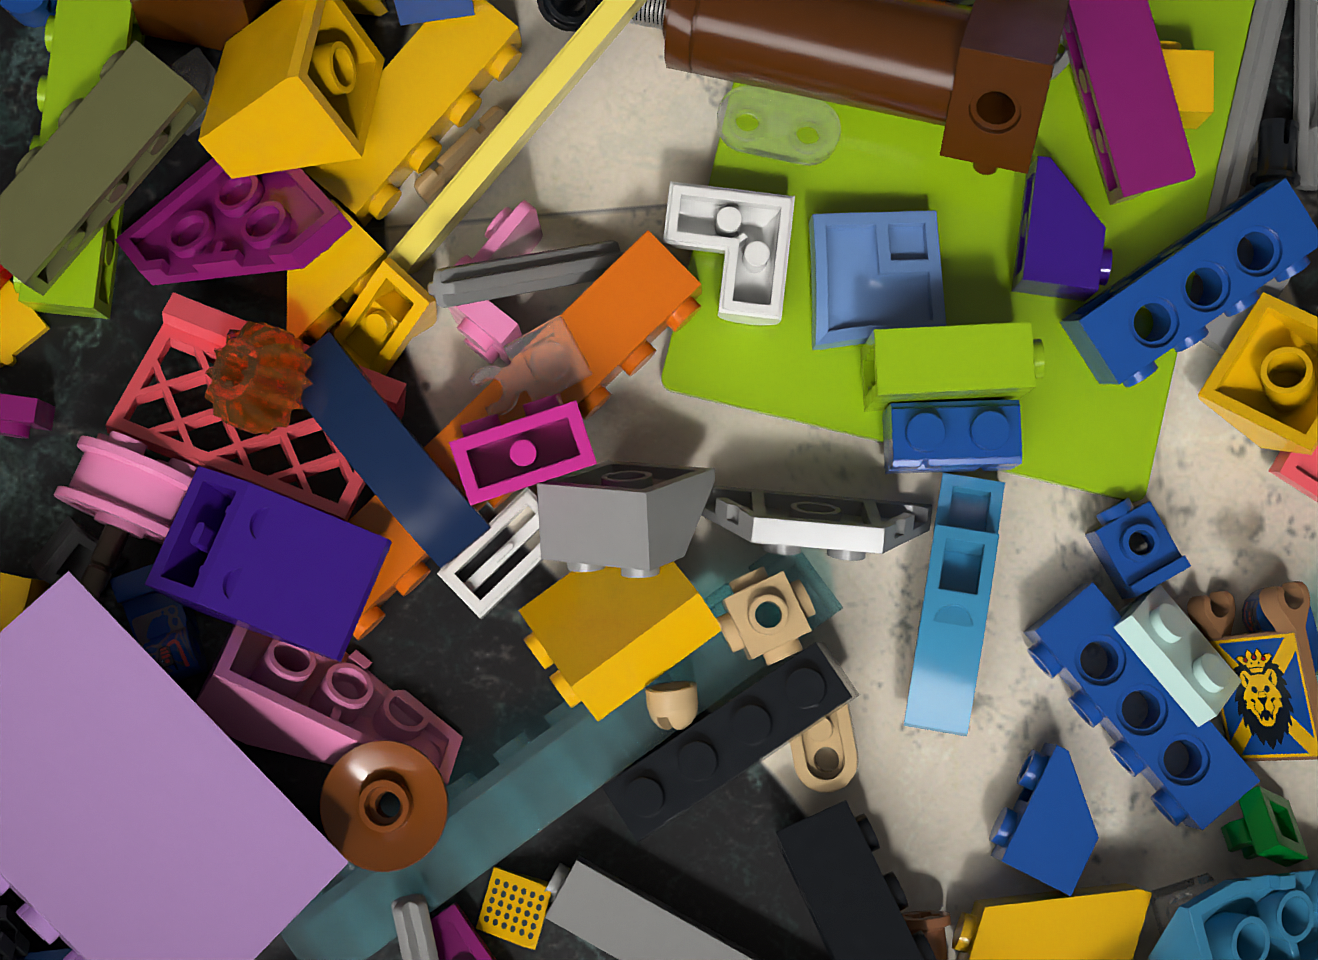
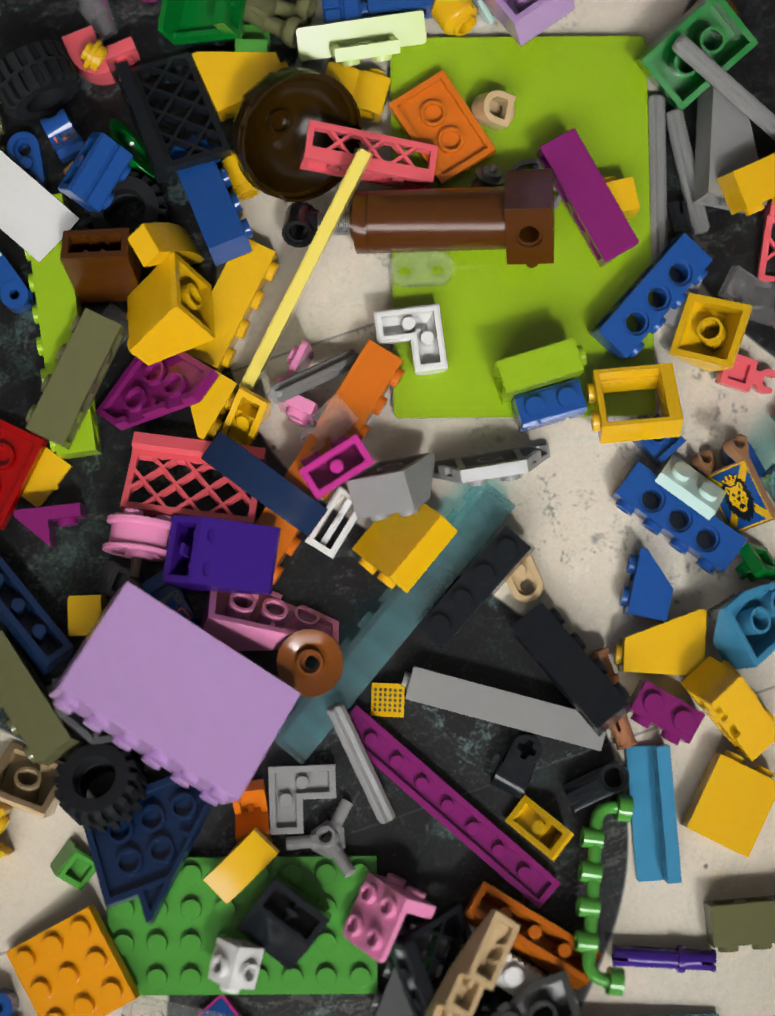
camera: 10 degrees left, 0 degrees up
(258, 378) = (192, 463): clear orange gear -> none
(432, 181) = (261, 325): tan axle -> none
(672, 704) = (442, 575): tan hinge -> none
(744, 631) = (468, 527): tan brick -> none
(873, 275) = (489, 333): medium blue plate -> none
(955, 604) = (572, 490): dark azure slope -> none
(1058, 239) = (578, 291): dark purple slope -> none
(1124, 426) = (633, 379): none -> yellow window

